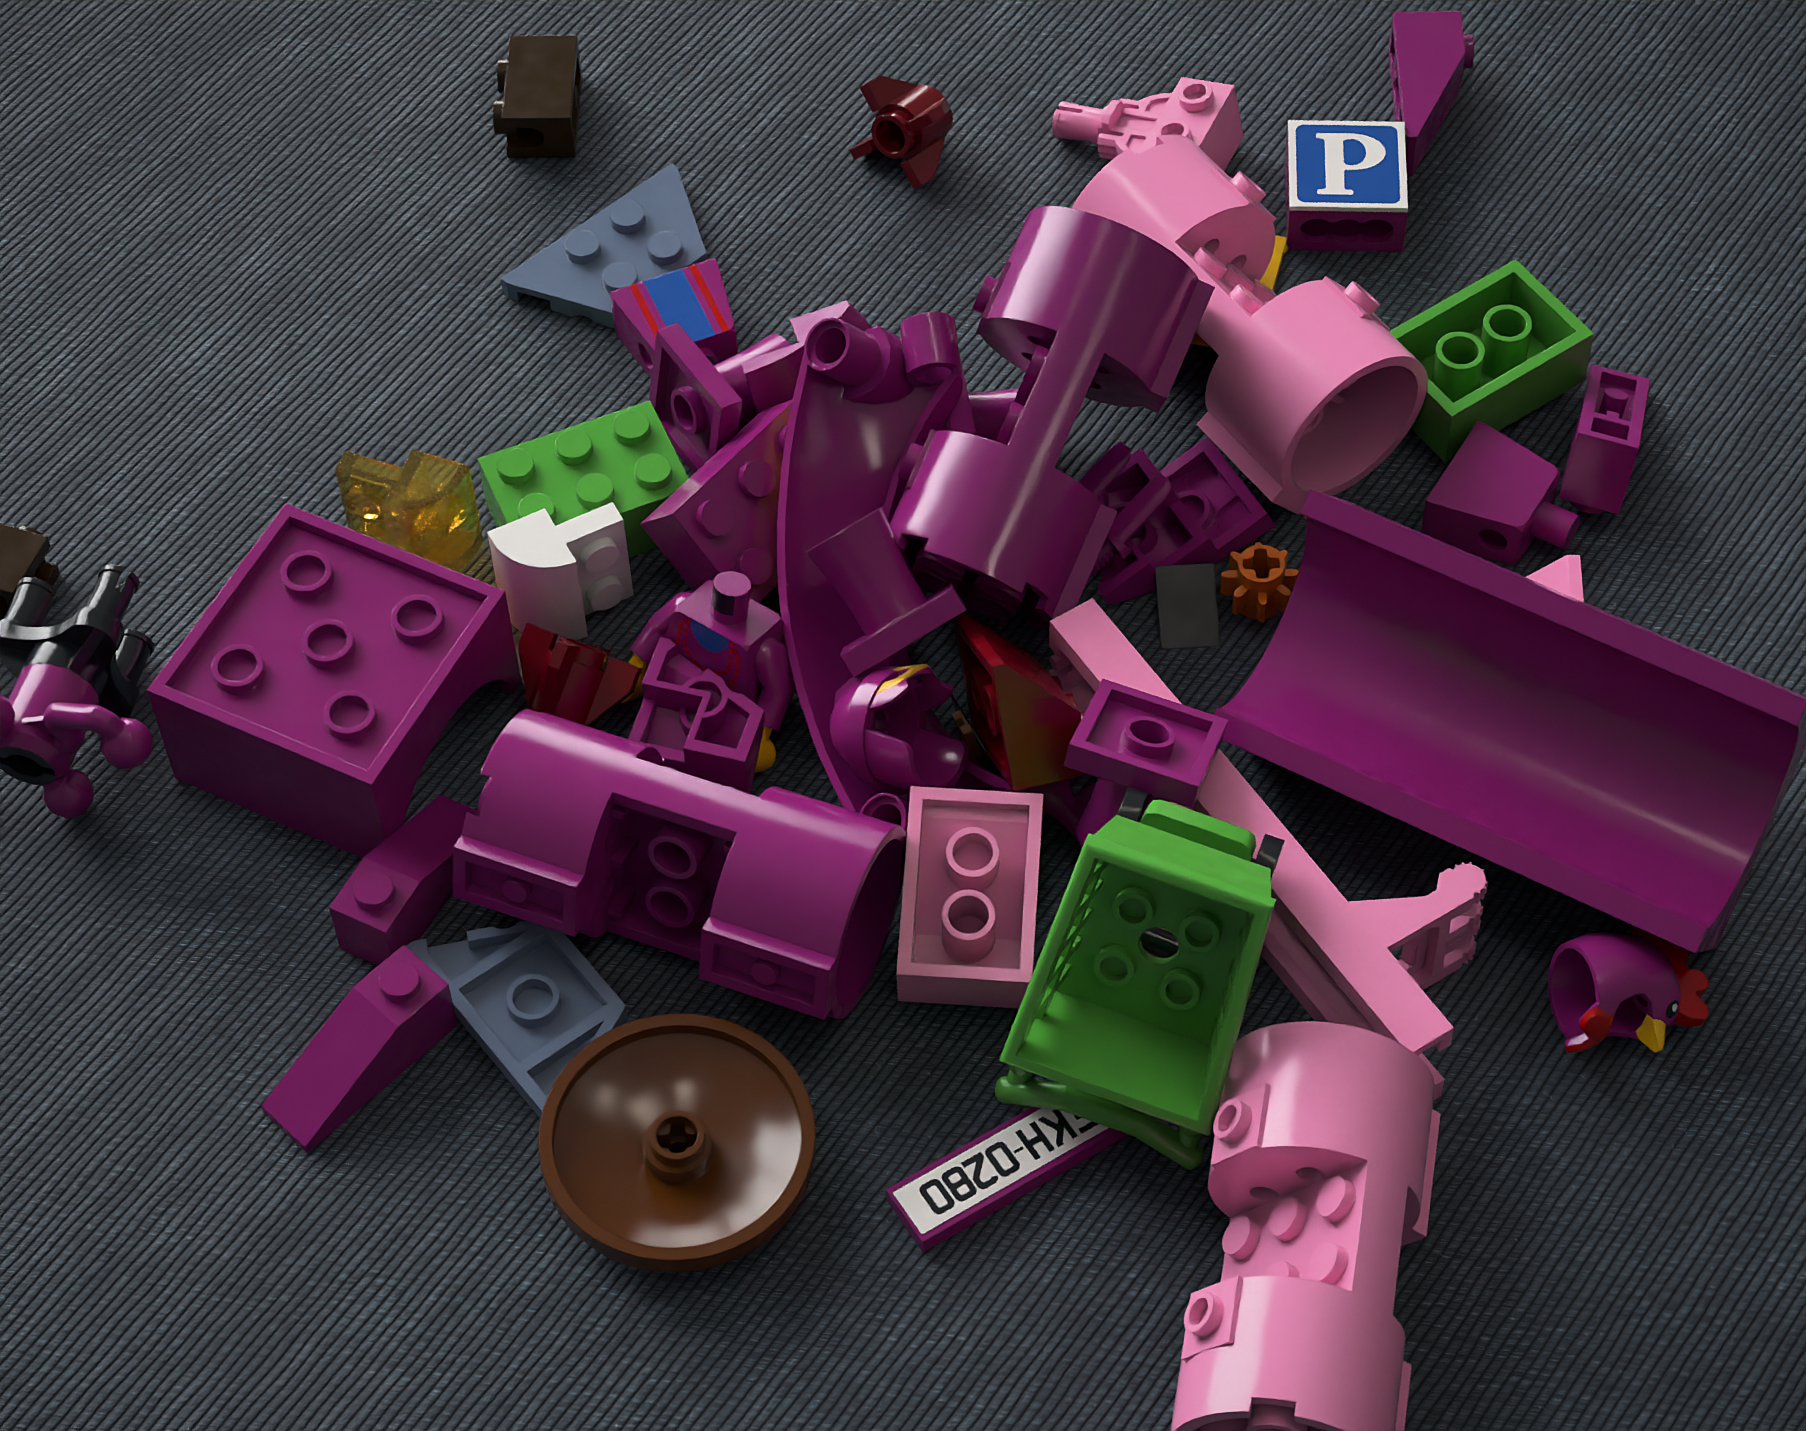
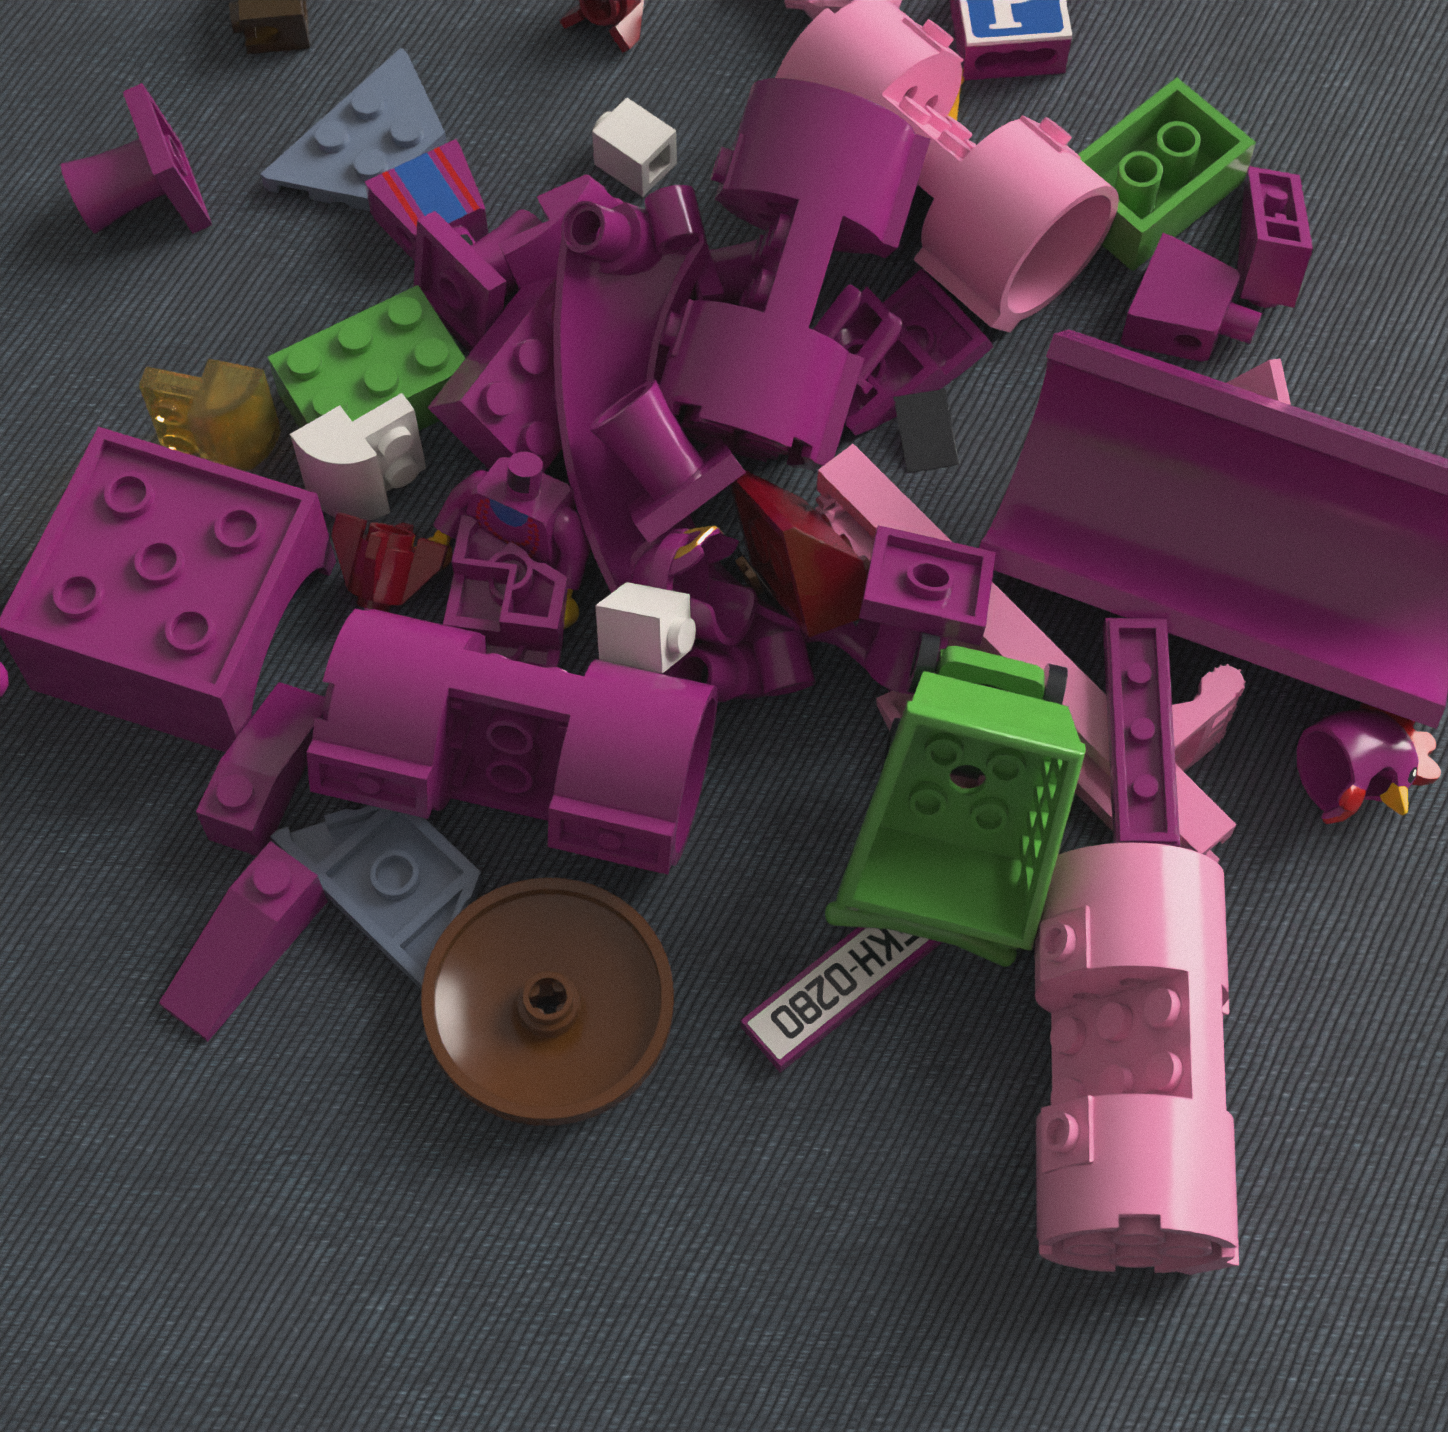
camera: 10 degrees left, 10 degrees up
(369, 262) = (136, 172): none -> magenta plant
(836, 760) = (644, 627): none -> white brick
(908, 280) = (634, 146): none -> white brick
(969, 897) = (780, 737): bright pink slope -> none
(1258, 581) = (989, 403): orange gear -> none
(1361, 915) = (1140, 732): none -> magenta tile

